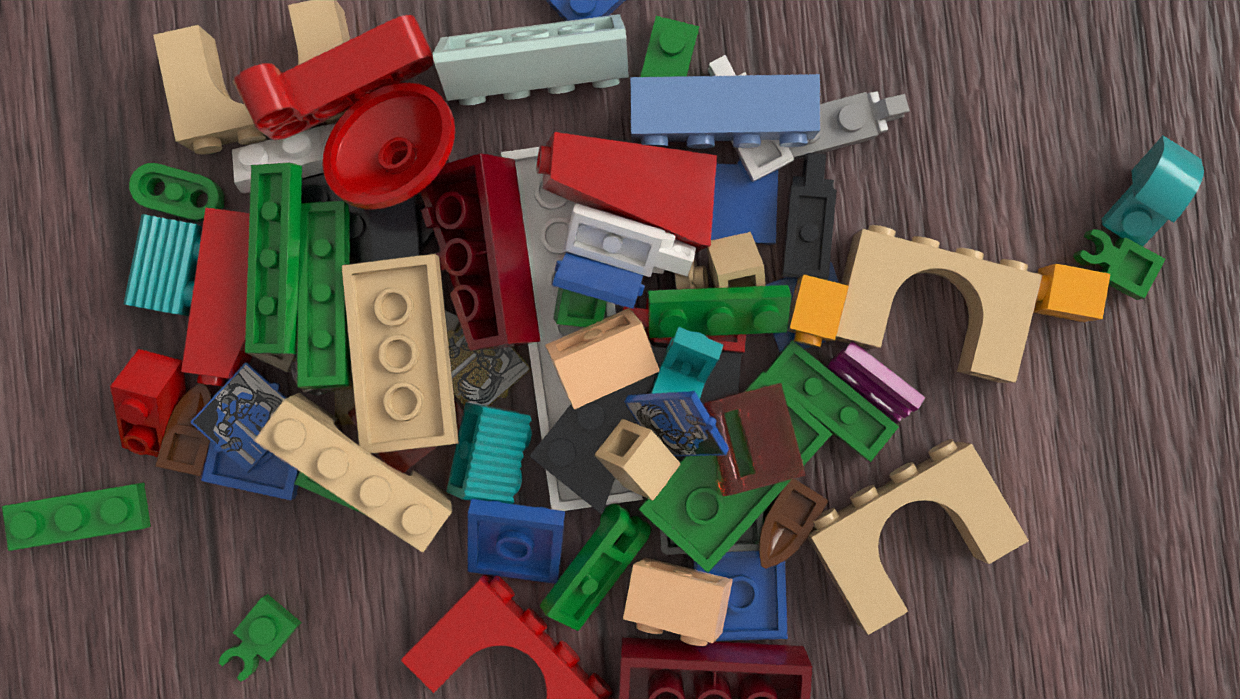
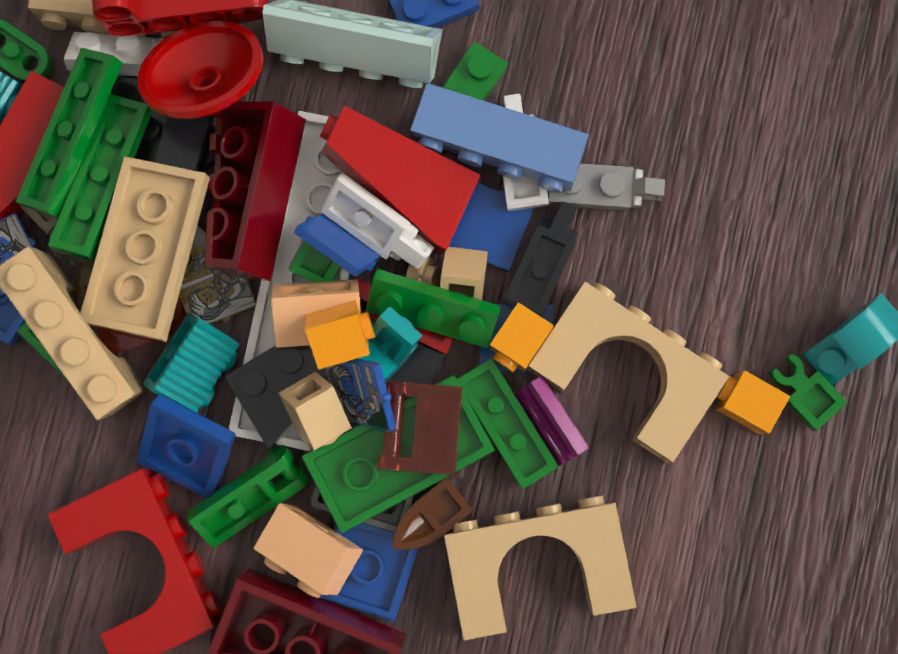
camera: 25 degrees right, 5 degrees down
(638, 374) = (338, 334): none -> light orange brick

